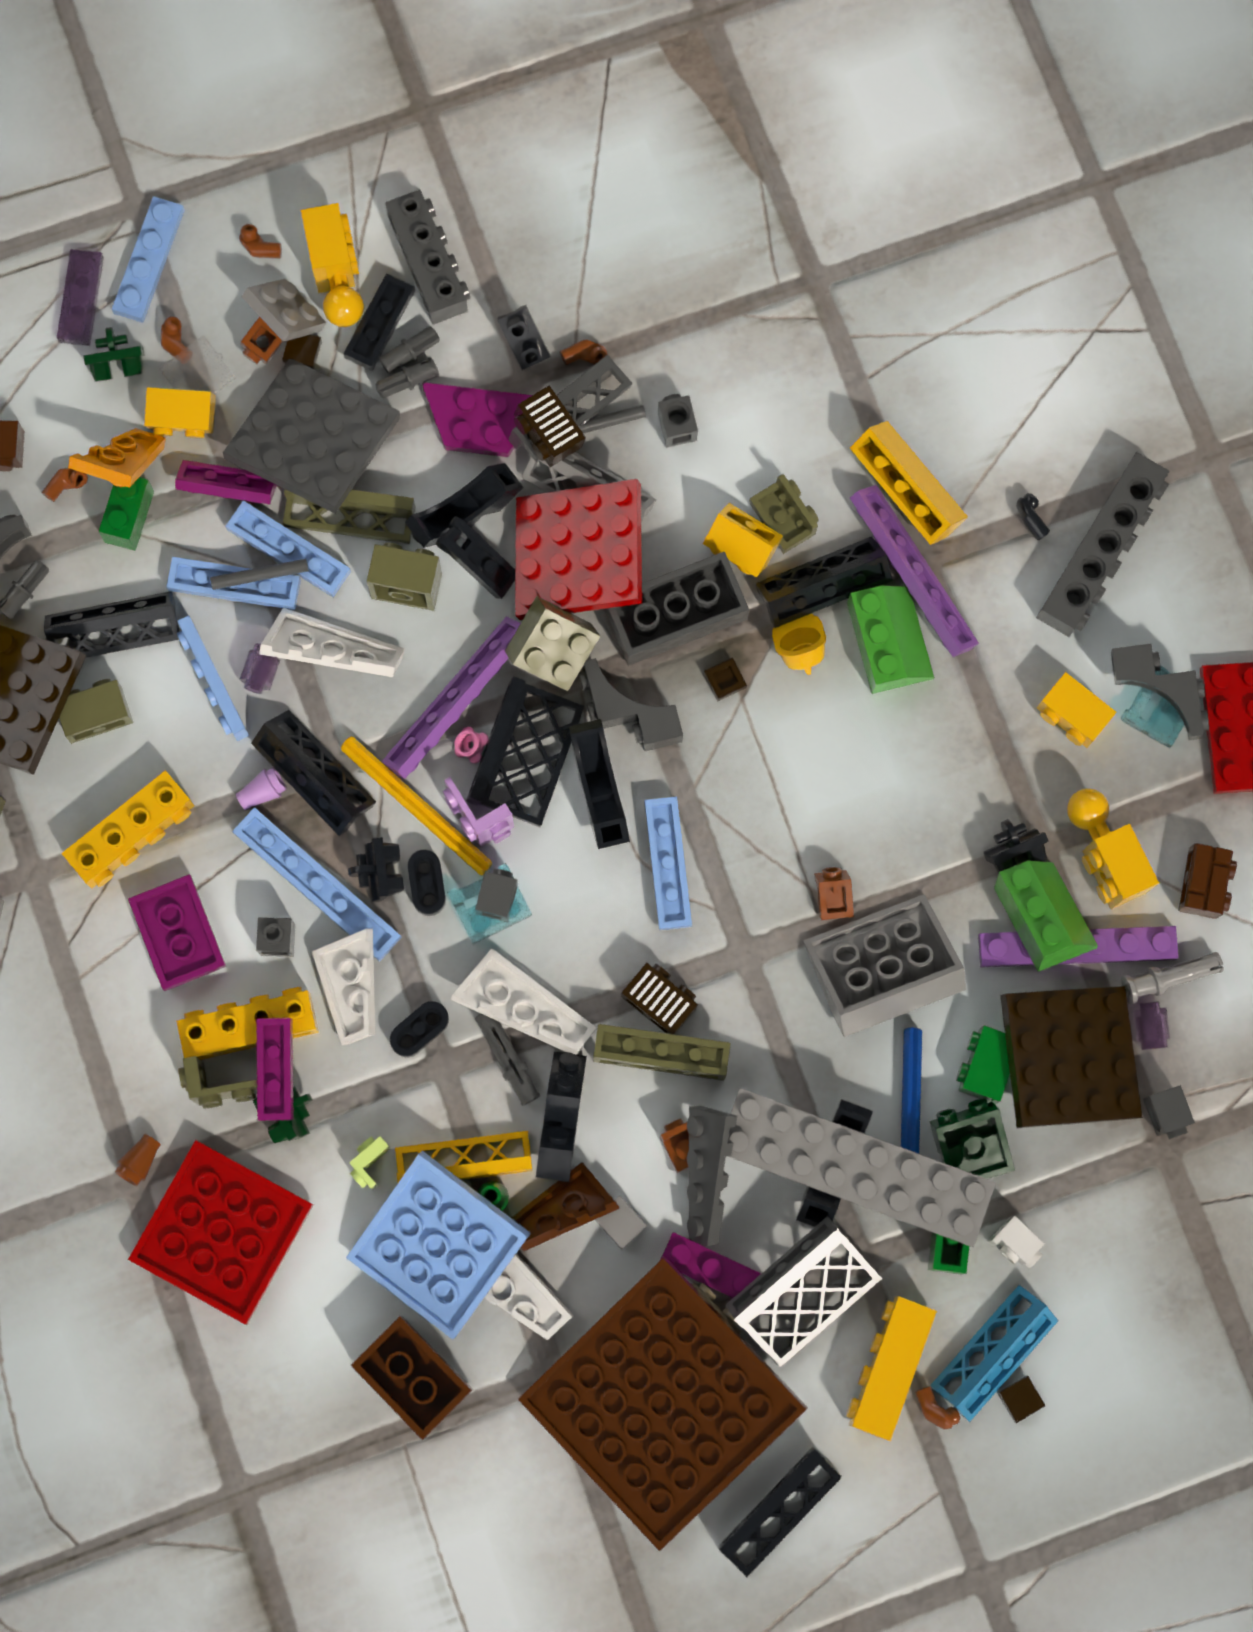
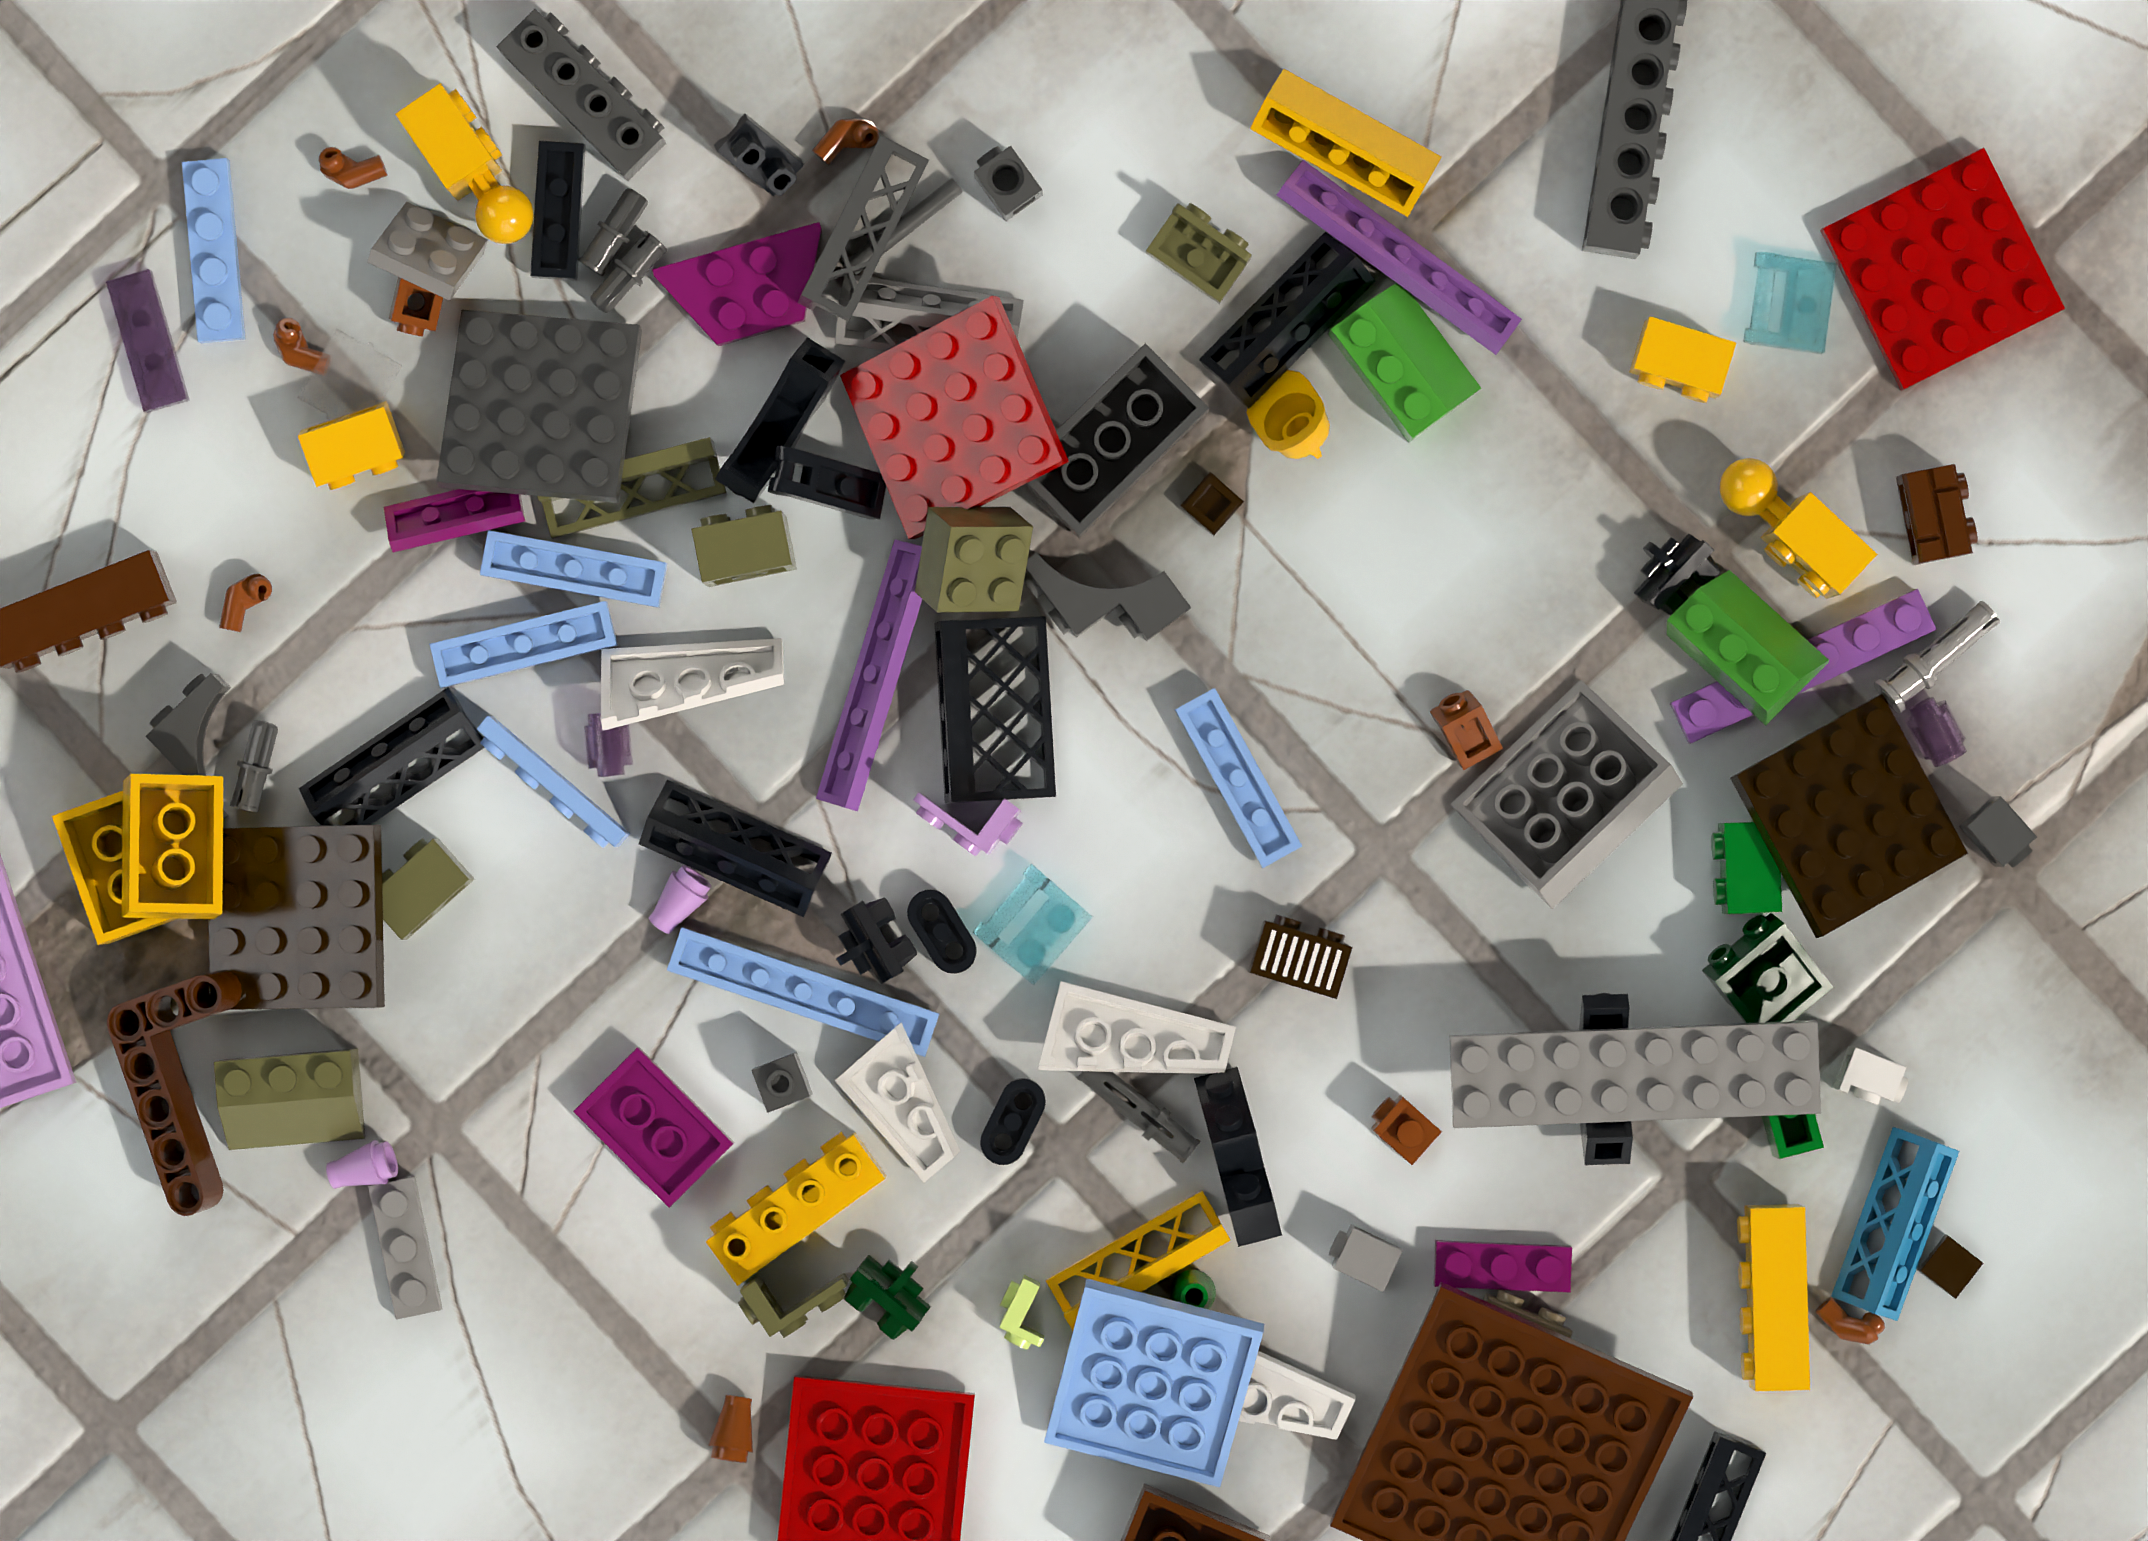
camera: 20 degrees left, 10 degrees up
(121, 460) = (310, 547): light orange wing -> none
(126, 514) = (342, 608): green brick -> none
(128, 830) = (534, 1022): yellow brick -> none
(129, 357) = (216, 418): dark green hips -> none
(259, 574) = (553, 621): dark grey bar -> none
(274, 1069) = (858, 1253): magenta plate -> none
(303, 350) = (476, 292): dark brown tile -> none
(416, 805) = (885, 836): yellow axle -> none
(463, 743) = (910, 728): bright pink plate -> none
(496, 895) = (1040, 914): dark grey brick -> none
(548, 426) = (848, 274): dark brown brick -> none
(565, 1207) = (1289, 1269): reddish brown wing -> none
(599, 784) = (1110, 717): black arch -> none
(661, 1052) = (1331, 1024): olive fence -> none
(706, 1161) = (1445, 1141): dark grey wing -> none
(743, 539) = (1160, 312): yellow brick -> none
(781, 1278) = (1603, 1240): fence -> none
(911, 1089) = (1664, 942): blue axle -> none
(1029, 516) = (1521, 120): black arm -> none
(1182, 690) = (1812, 278): dark grey arch -> none

